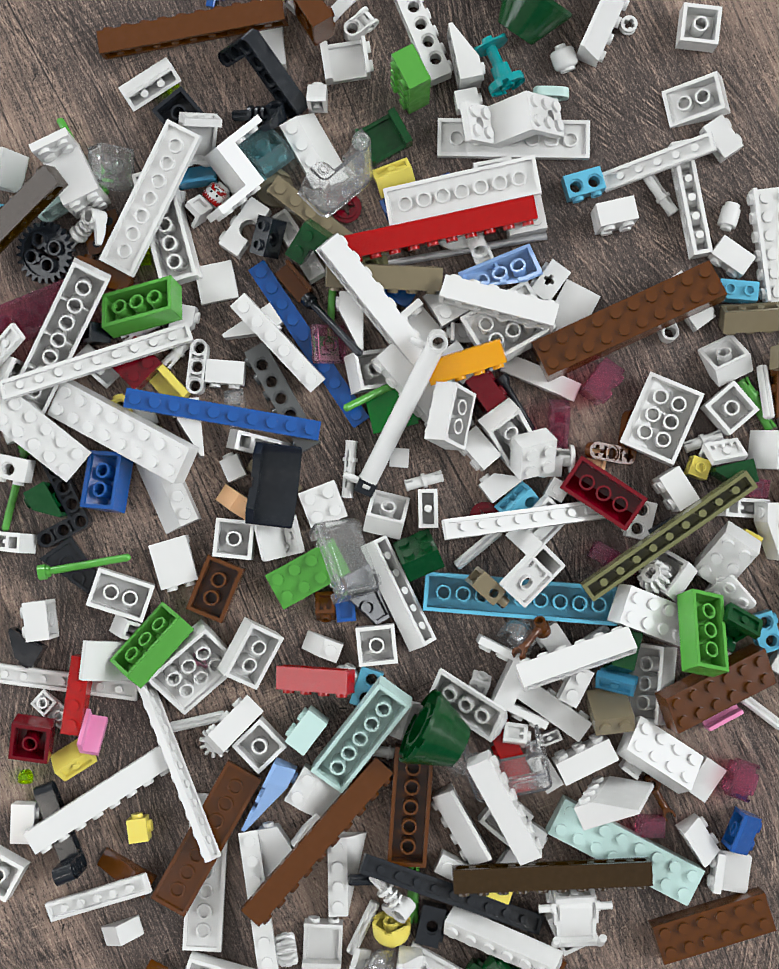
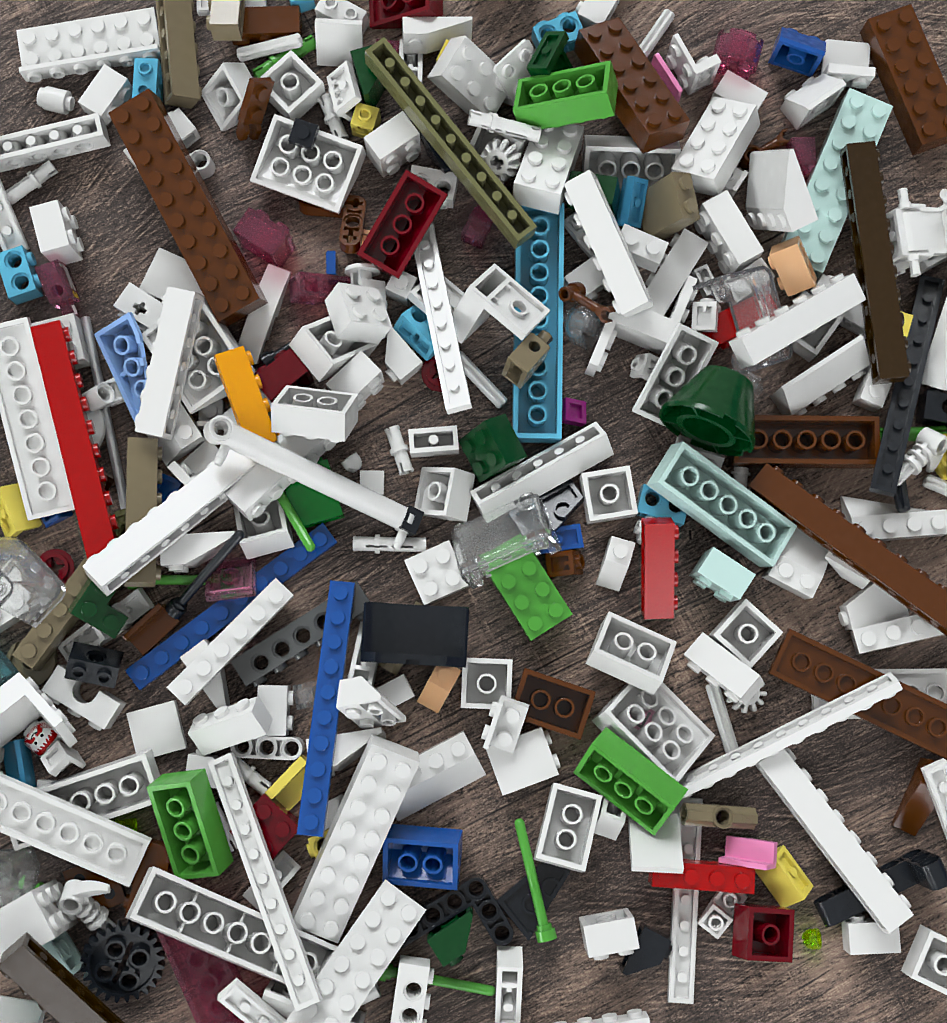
camera: 105 degrees left, 5 degrees down
(95, 335) = (230, 884): black slope -> none
(122, 701) = (731, 816): none -> dark tan piece
(139, 828) = (863, 783): light yellow brick -> none
(201, 552) = (506, 724): none -> white bracket
(213, 340) = (230, 725): none -> white brick
(221, 445) = (366, 704): none -> white slope
(276, 782) = (794, 613): light blue wedge -> none
(278, 542) = (486, 626): white bracket -> none
(416, 443) = (352, 463): none -> white hinge
(446, 622) = (573, 412): none -> magenta plate
(553, 808) = (792, 266): none -> light nougat brick
(577, 215) = (57, 278): none -> clear pink torso
(578, 434) = (331, 263): none -> blue tile
(679, 584) = (494, 123): none -> white pin
(685, 417) = (303, 134): none -> black plate
(711, 377) = (254, 108): none -> reddish brown hinge
(724, 737) = (691, 75): none -> white bracket

